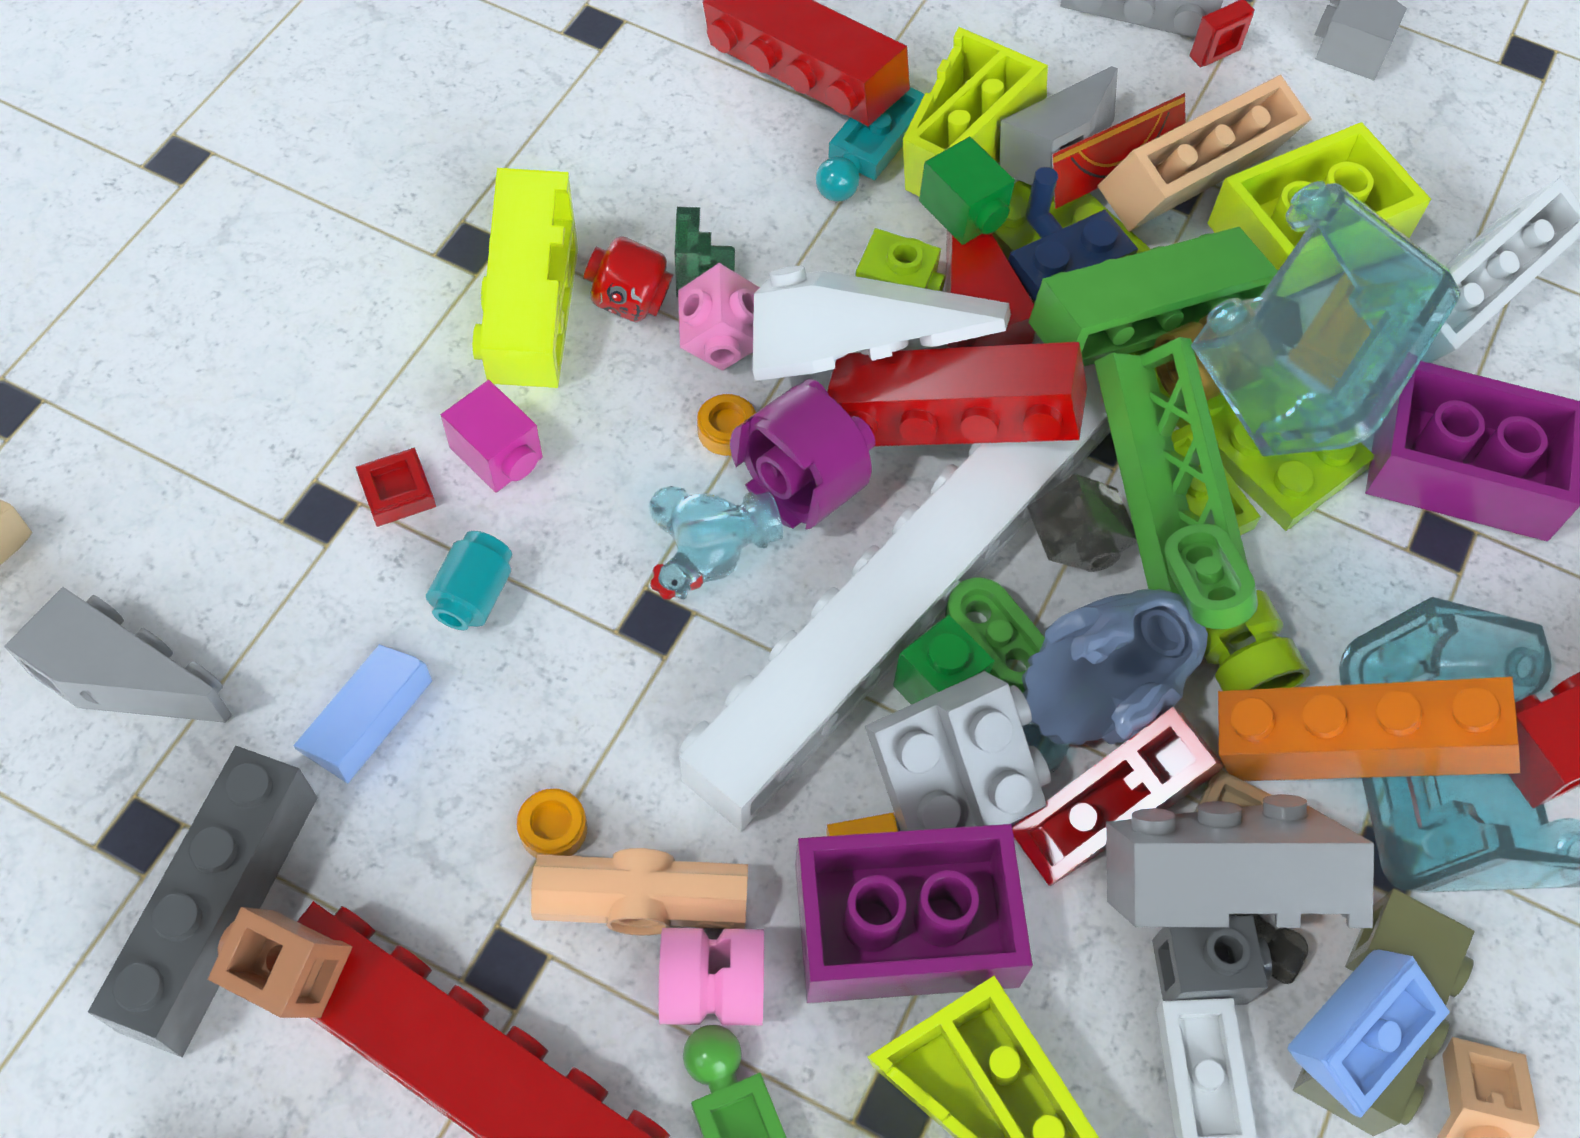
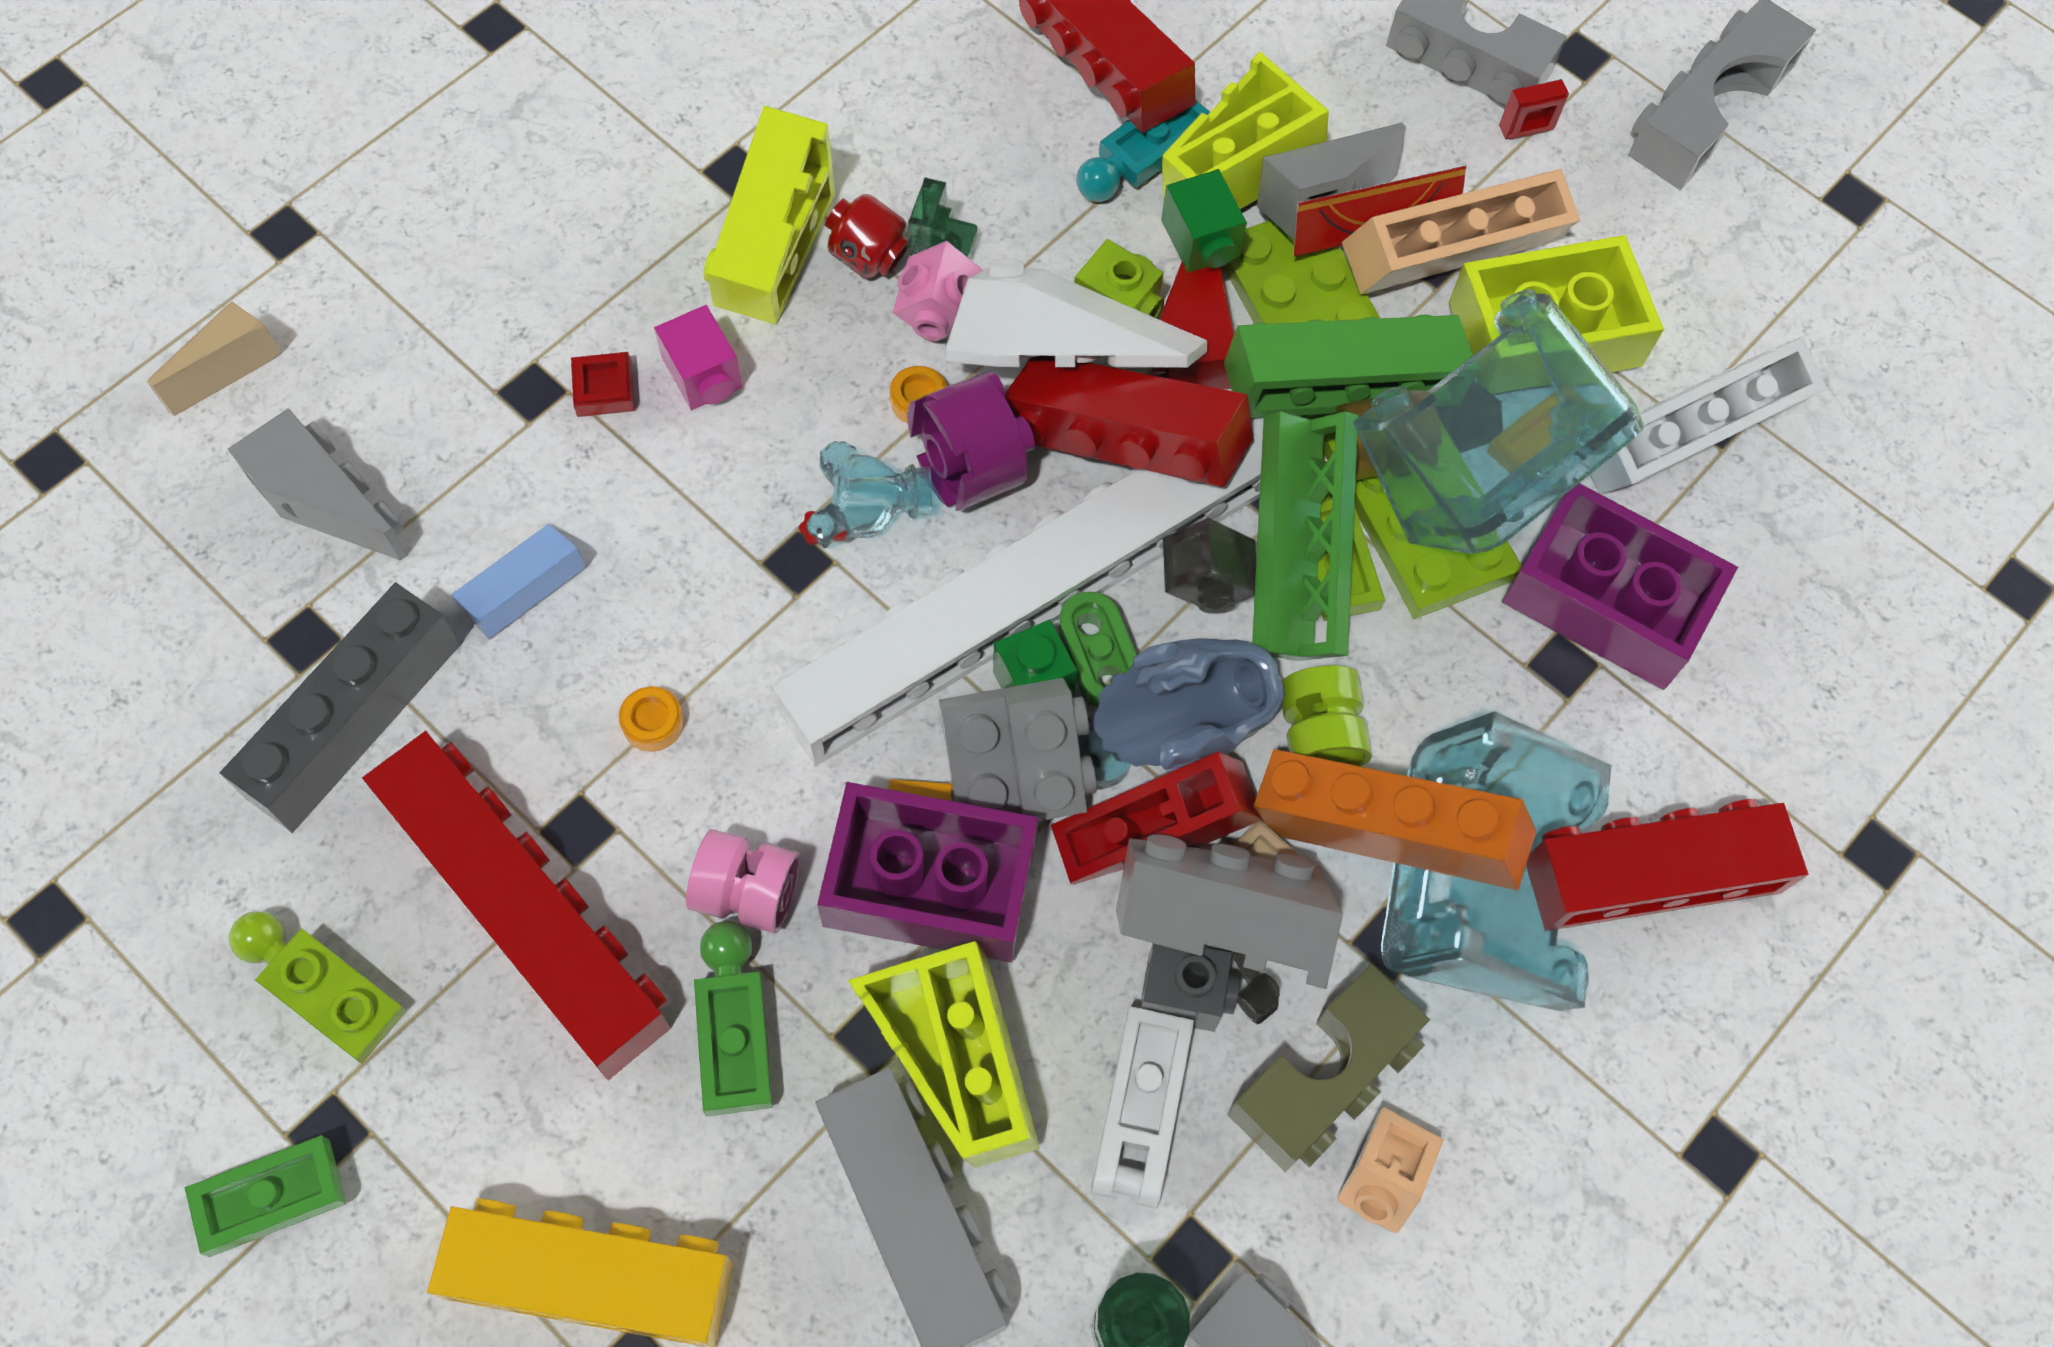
camera: 15 degrees right, 5 degrees up
(278, 963) = (380, 773): nougat brick -> none
(470, 581) = (640, 485): teal brick -> none
(639, 891) = (706, 794): light nougat piece -> none
(1062, 248) = (1287, 297): dark blue plate -> none
(1211, 576) = (1300, 642): bright green plate -> none
(1369, 1029) = (1297, 1076): light blue slope -> none

